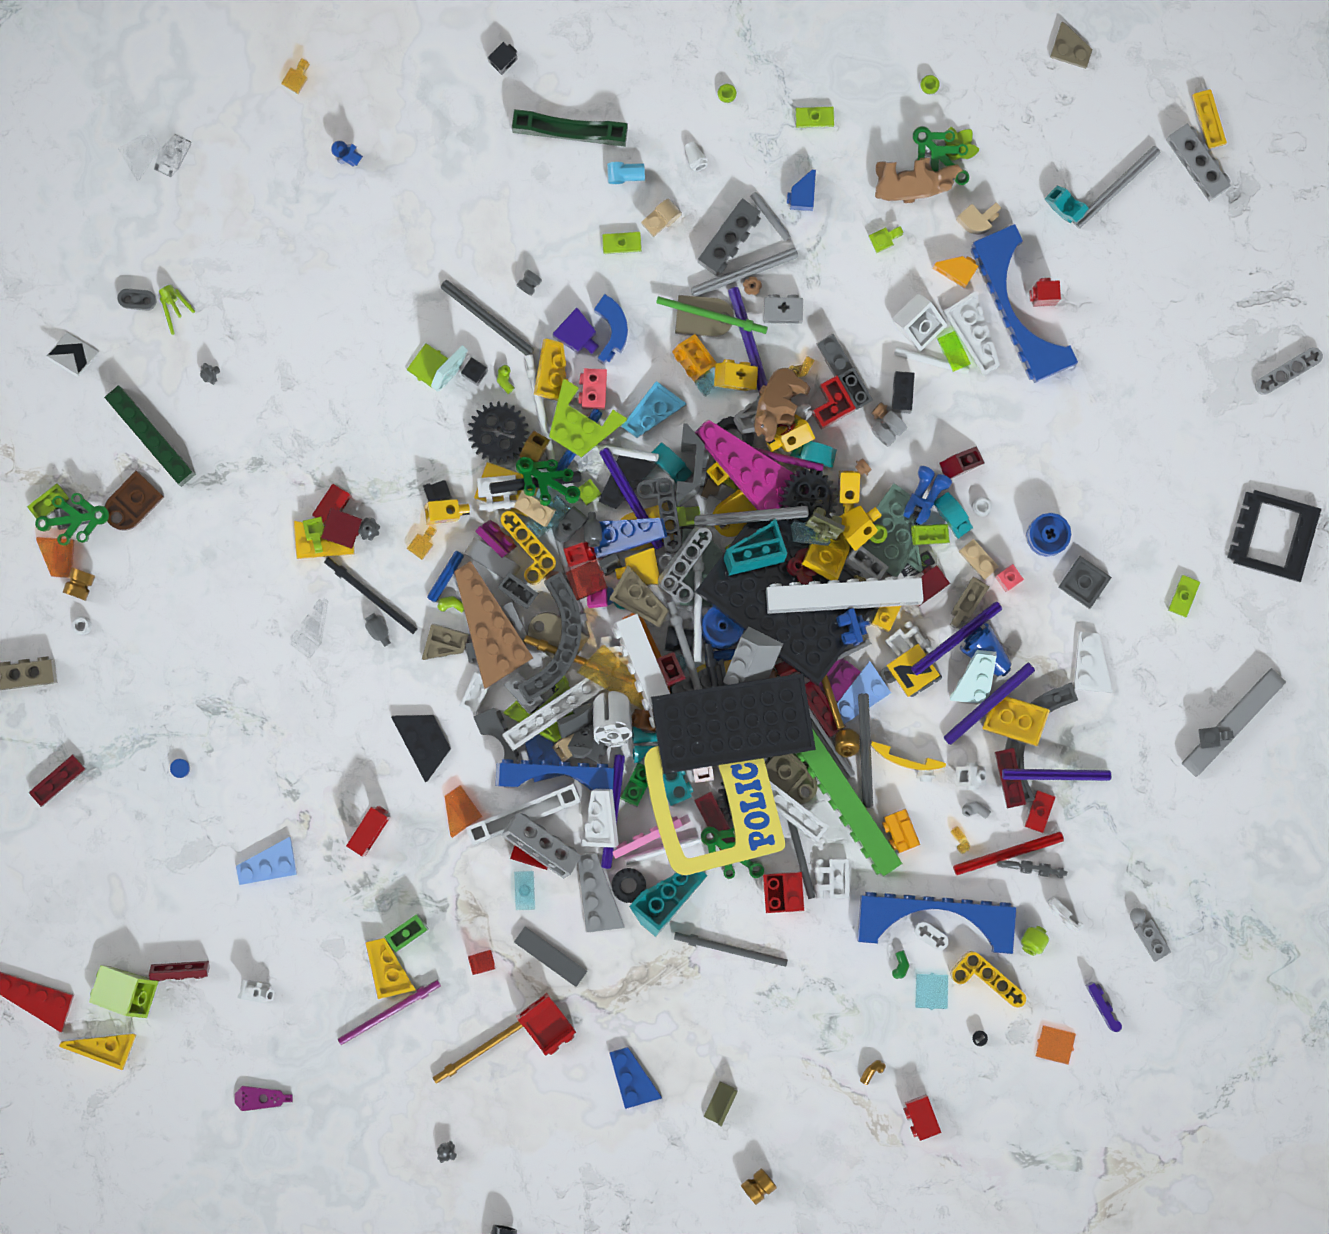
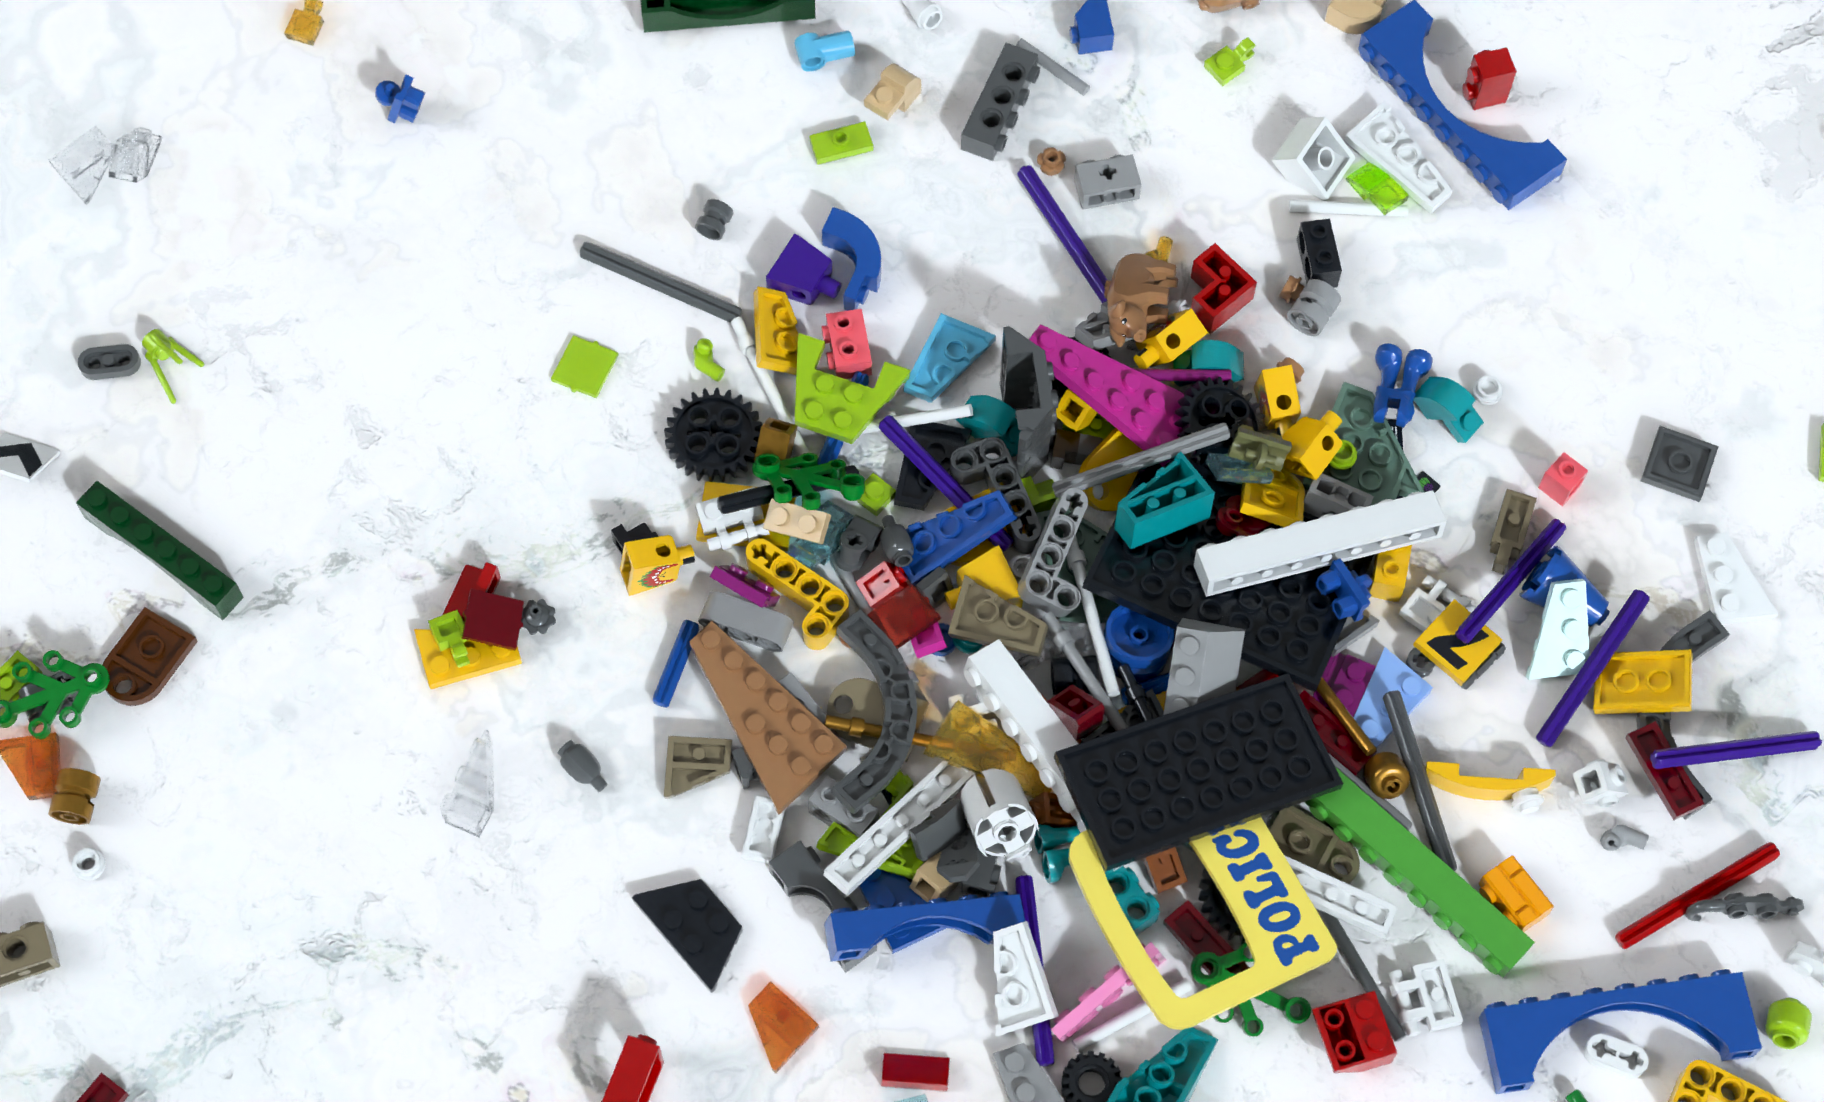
camera: 10 degrees left, 20 degrees down
(179, 768) = (290, 1058): blue tile -> none
(209, 373) = (240, 442): dark grey plant -> none
(342, 572) = (506, 691): black bar -> none
(420, 545) = (627, 624): clear yellow plate -> none
(448, 602) = (694, 699): lime arm -> none
(449, 369) = (617, 350): light aqua tile -> none
(474, 371) = (657, 356): black brick -> none
(518, 590) = (800, 648): dark grey torso -> none
(531, 845) = (930, 1044): light grey brick -> none
(534, 810) = (854, 1027): white arch -> none
(636, 786) = (1063, 919): green slope -> none
(694, 357) = (989, 272): light orange bracket -> none
(701, 326) = (987, 216): dark tan tile -> none
(705, 384) = (1019, 302): clear light blue wheel -> none
(735, 376) = (1061, 279): yellow brick -> none
(744, 272) = (1034, 146): light grey axle -> none
(747, 325) = (1060, 207): bright green bar -> none
(841, 366) = (1207, 229): dark grey slope -> none
(930, 534) = (1421, 442): lime plate -> none
(932, 582) = (1456, 507): dark red slope -> none
(957, 269) = (1347, 79): light orange slope -> none
(961, 462) = (1437, 333): dark red slope -> none
(962, 839) = (1621, 894): clear yellow arm -> none
(978, 559) = (1506, 466): tan plate -> none
(1039, 811) = (1726, 819): red plate -> none
(1059, 531) = (1603, 404): blue wheel -> none

